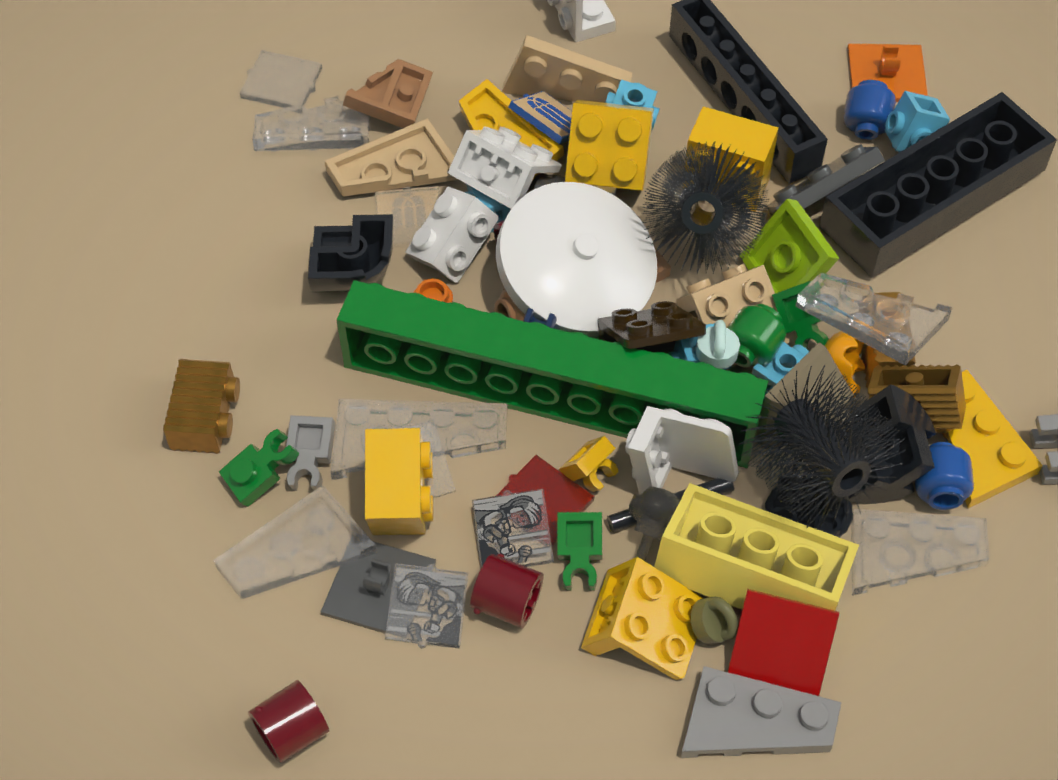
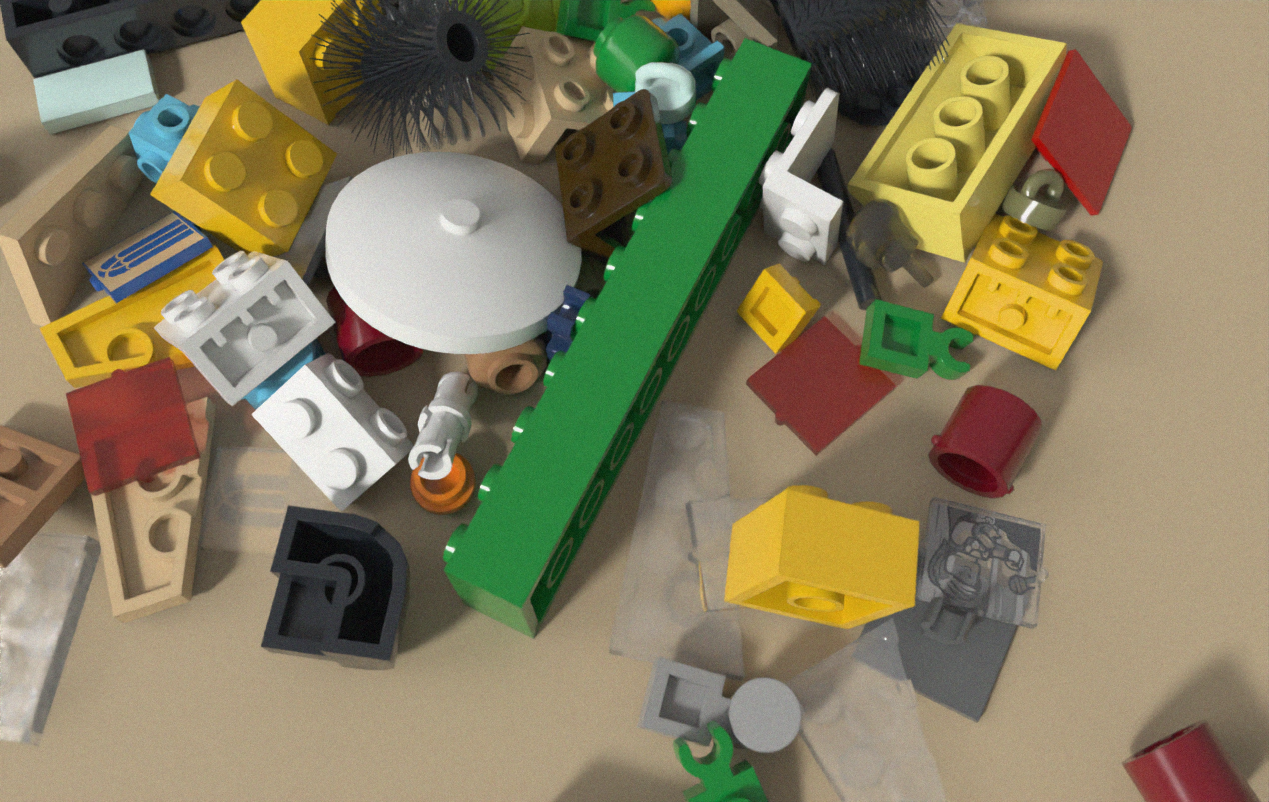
camera: 80 degrees left, 10 degrees up
(303, 476) = (765, 715): none -> light grey tile
(432, 137) = (132, 426): none -> clear red piece
(461, 283) = (443, 426): none -> white pin
(514, 527) = (872, 427): piece -> none
(670, 65) = (96, 92): none -> light aqua tile
(754, 716) = (1160, 196): light grey wing -> none

